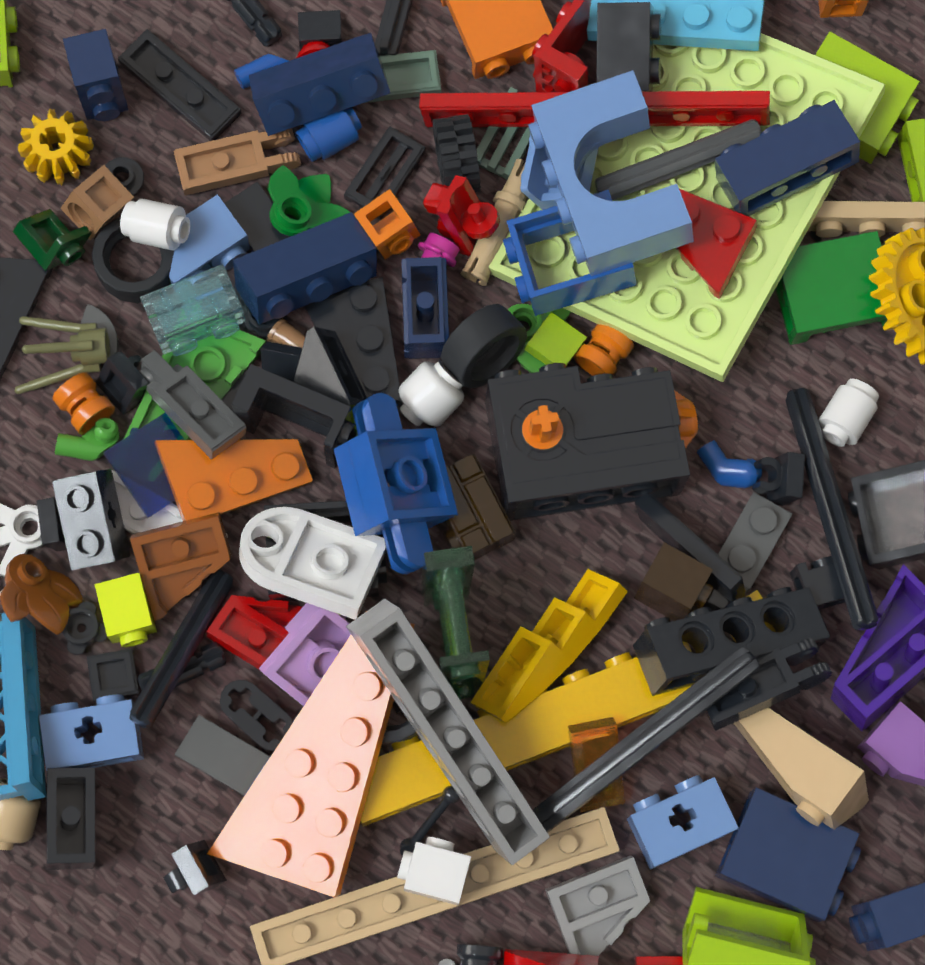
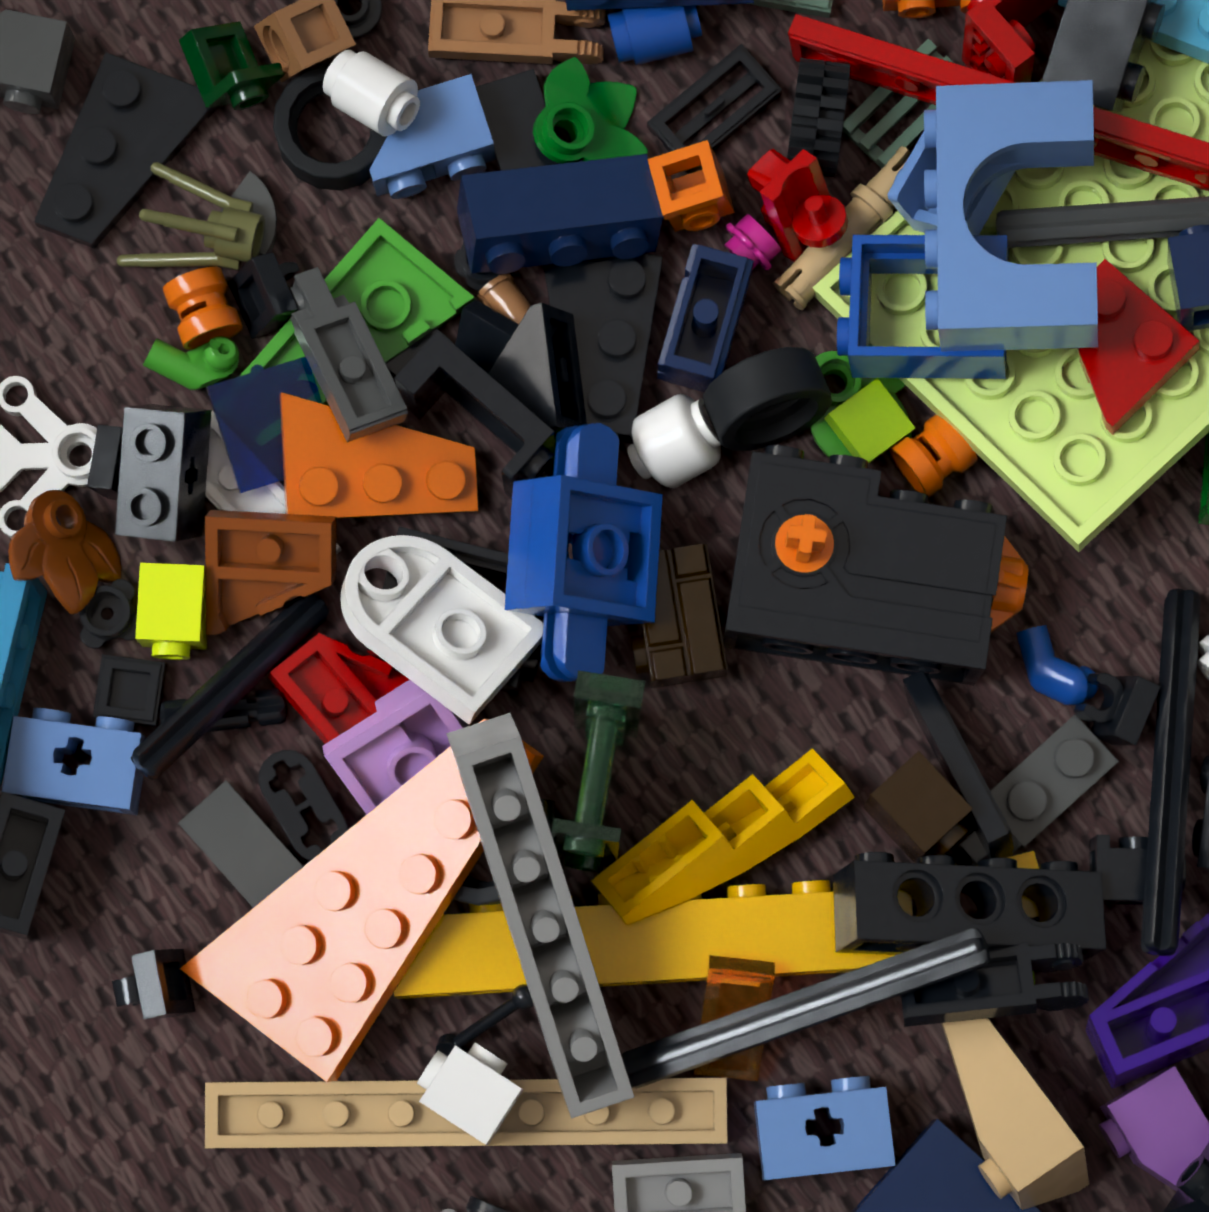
camera: 25 degrees right, 5 degrees up
(193, 311) = (387, 228): clear light blue brick -> none

